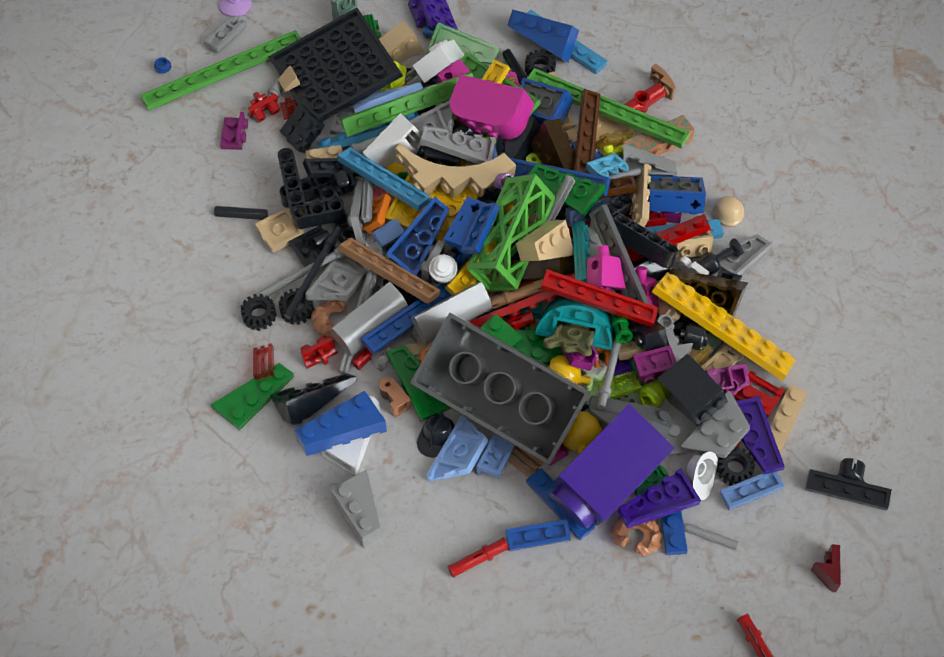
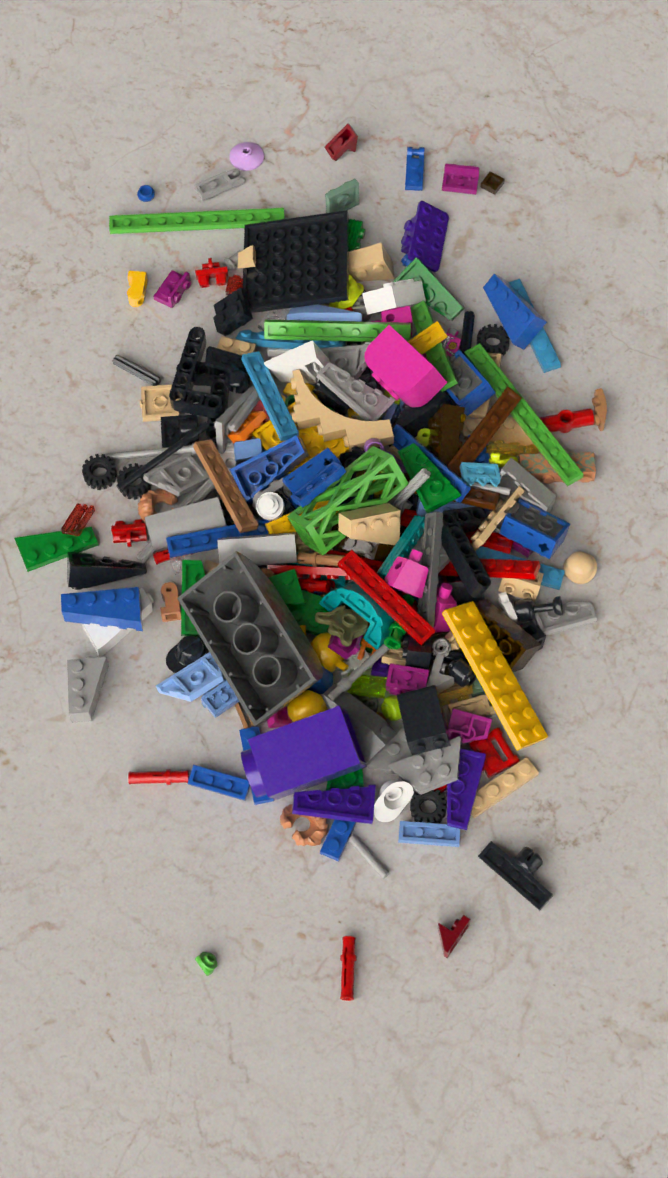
camera: 30 degrees right, 5 degrees up
(199, 138) = (137, 291): none -> yellow leg

